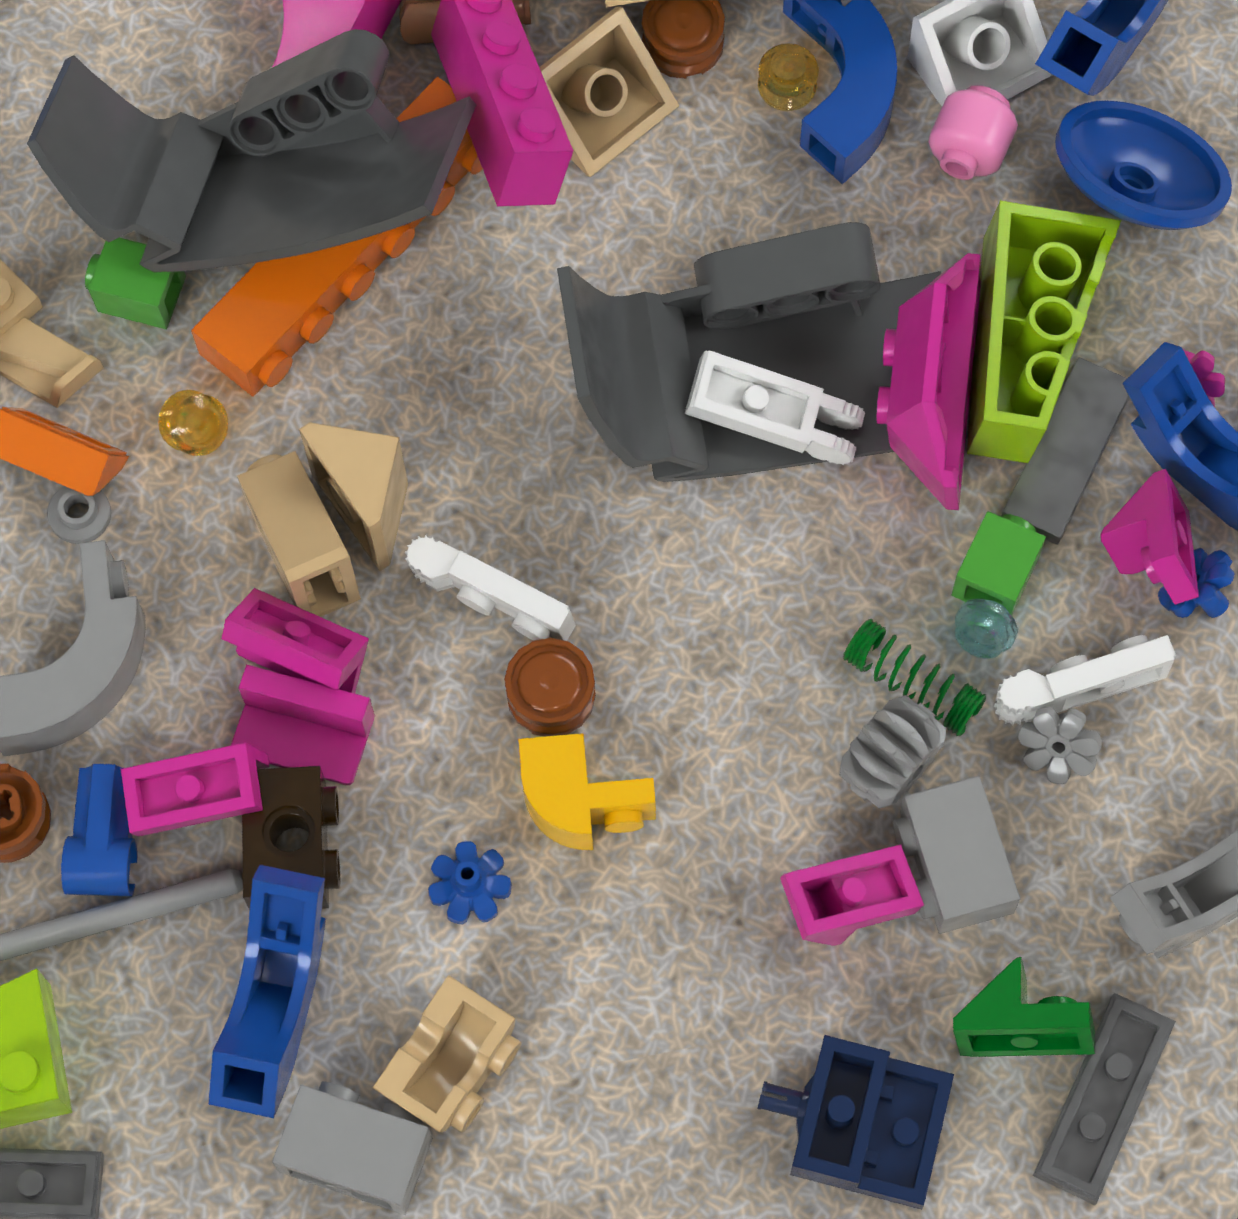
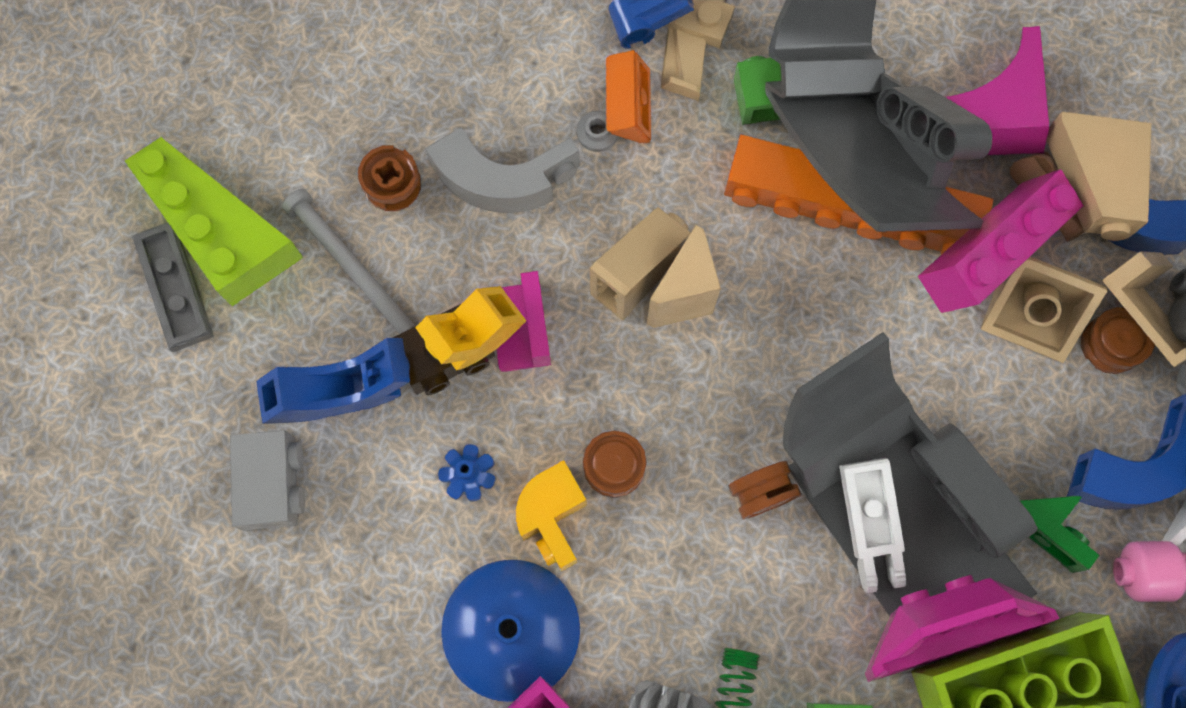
camera: 65 degrees right, 5 degrees up
(101, 847) = (392, 244): blue piece -> none
(193, 422) = (685, 166): clear yellow wheel -> none
(193, 788) = (438, 272): dark pink panel -> none
(291, 766) = (472, 329): none -> yellow brick
(295, 642) = (566, 293): dark pink panel -> none
(450, 1058) = (339, 511): tan cylinder -> none
(486, 587) = (660, 393): white hinge -> none
(671, 517) = (762, 484): none -> dark orange wheel
(692, 955) = (544, 637): none -> blue dish
(788, 77) = (1123, 425): clear yellow wheel -> none
(895, 212) = (1061, 542): none -> green slope

